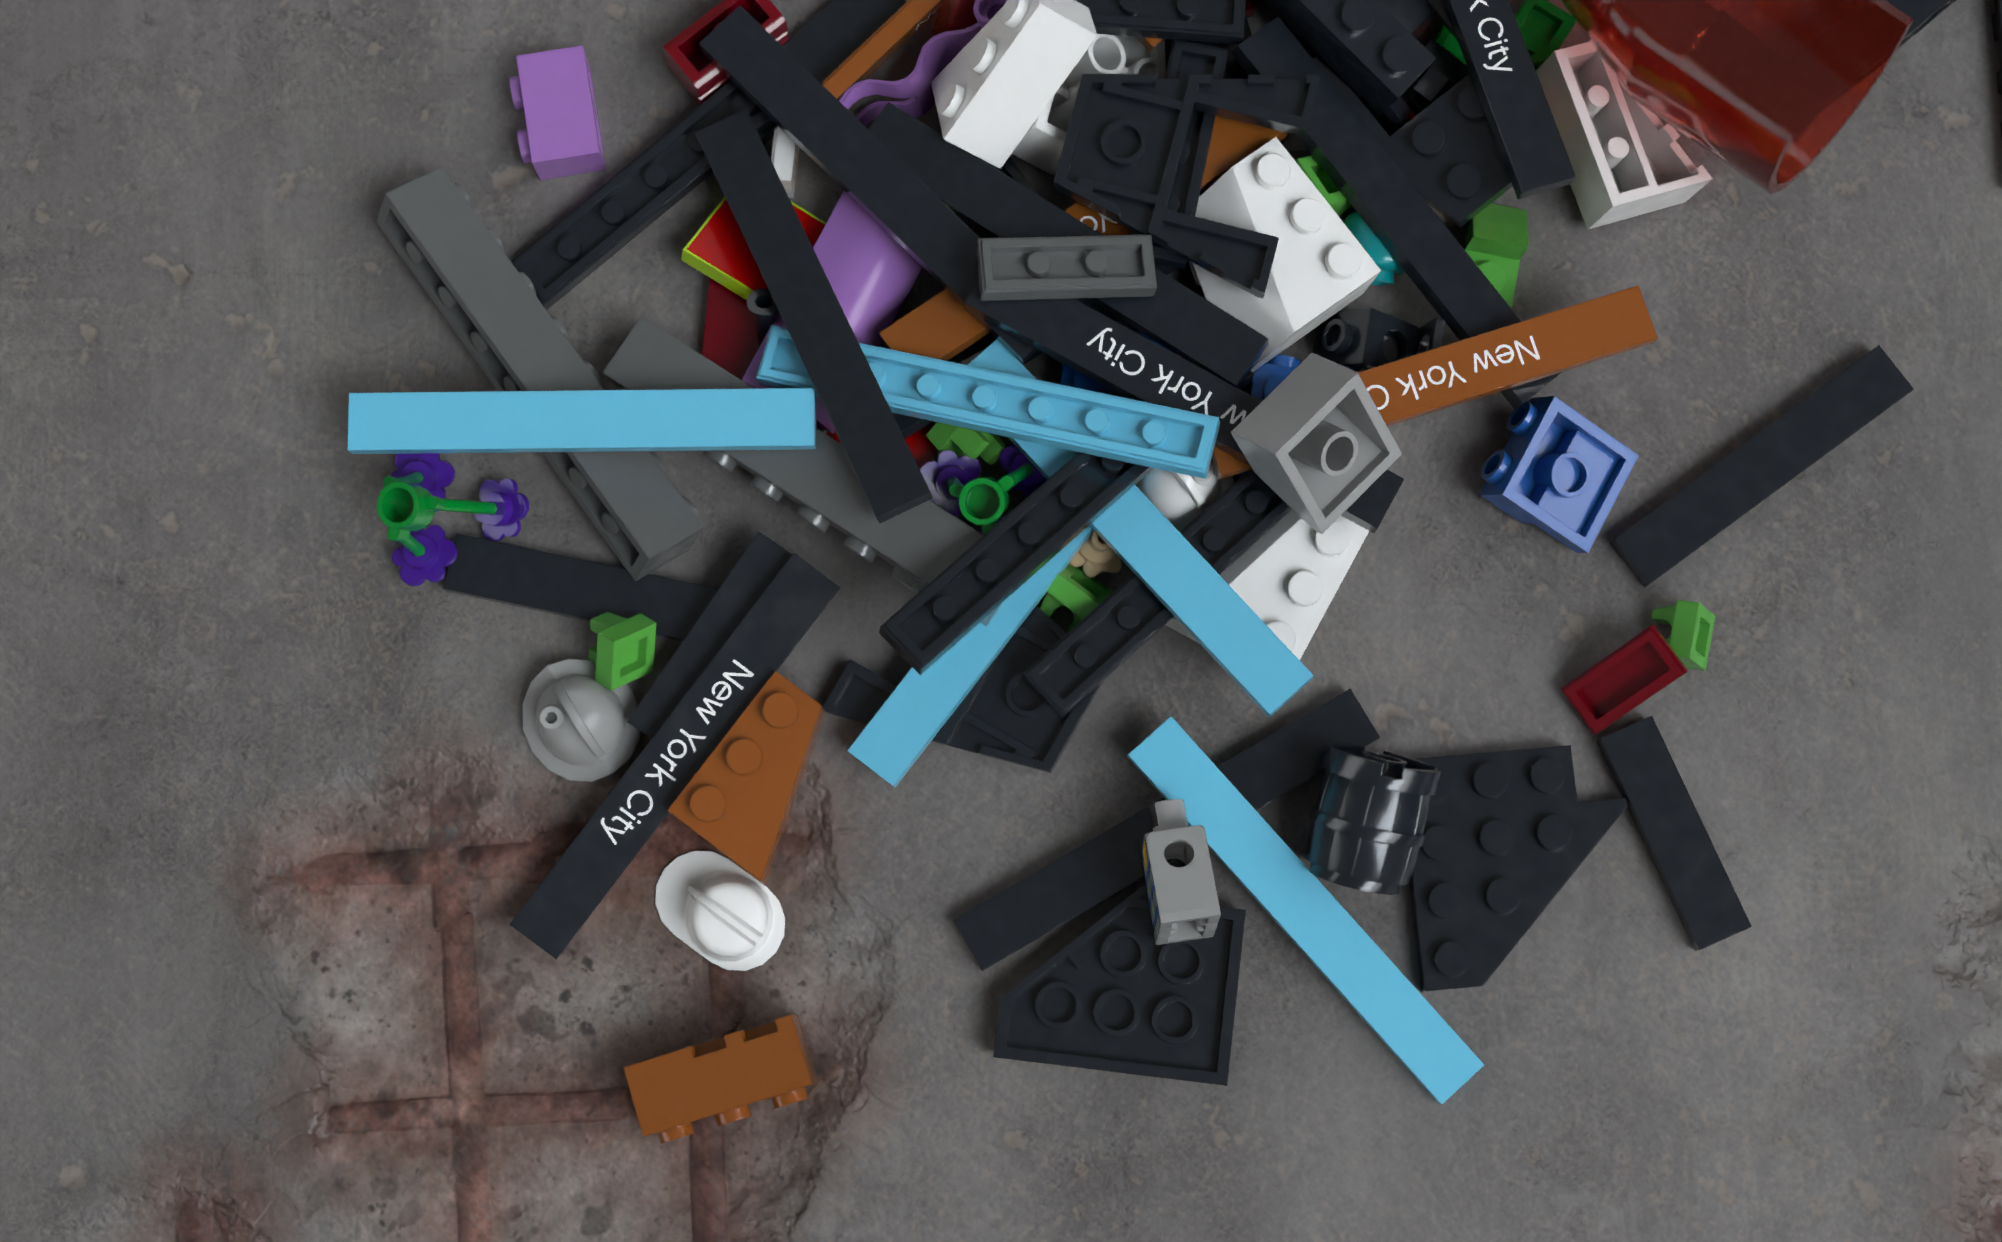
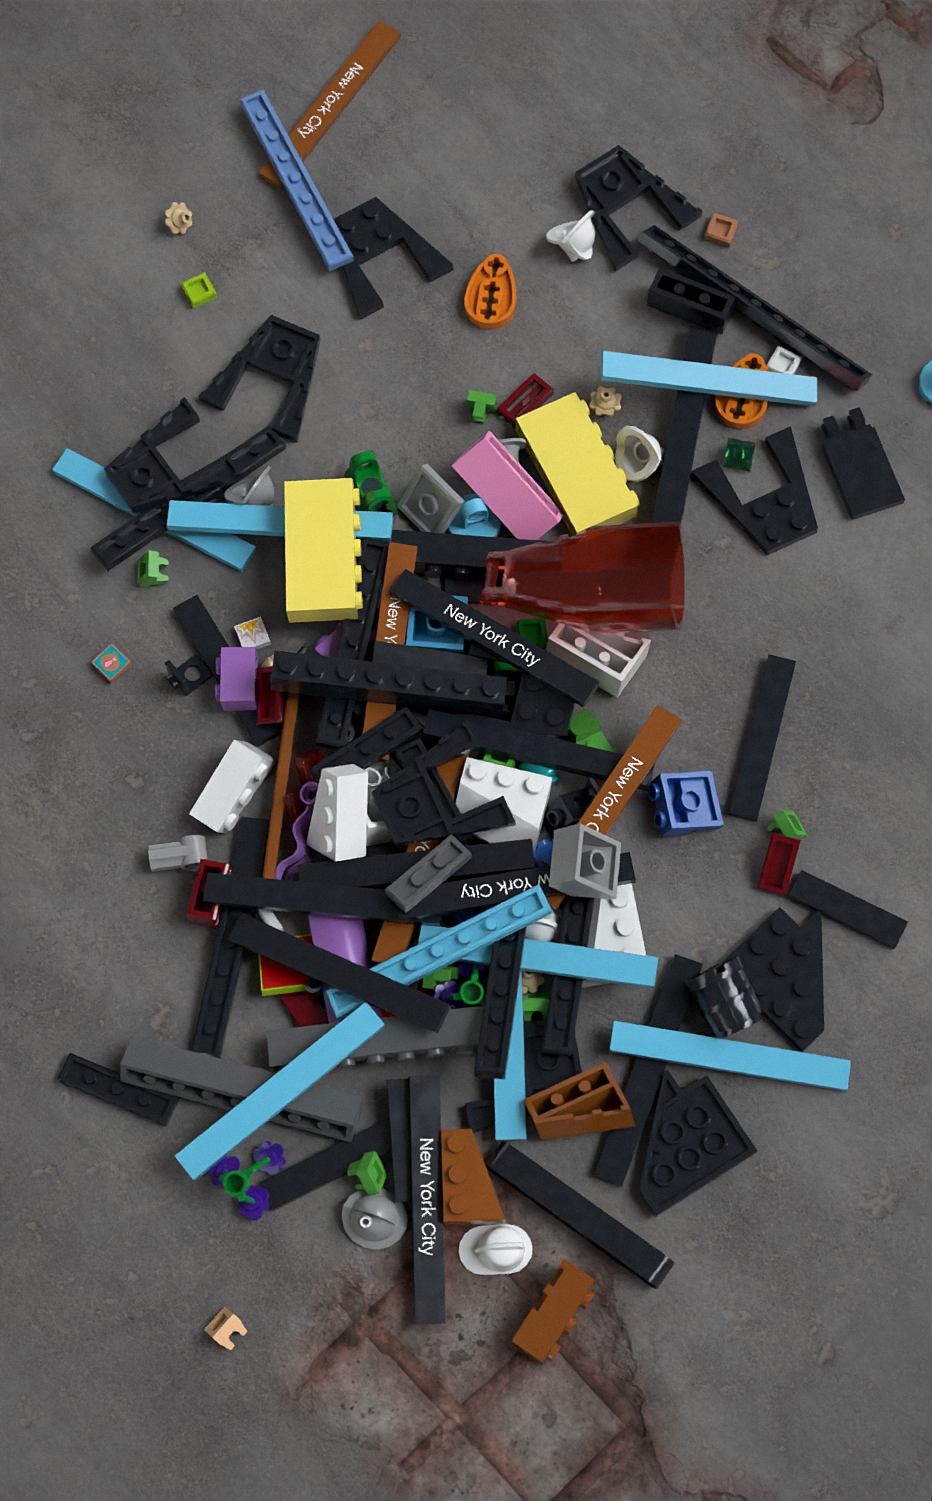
camera: 30 degrees left, 10 degrees down
(234, 700) = (223, 1325): none -> light nougat tile
(352, 211) = (107, 1086): none -> black tile
(559, 113) = (161, 976): medium lavender brick -> none
(882, 963) = (579, 1214): none -> black beam
(1013, 802) = (580, 1106): none -> dark orange wedge
(1180, 898) = (671, 1081): light grey torso -> none

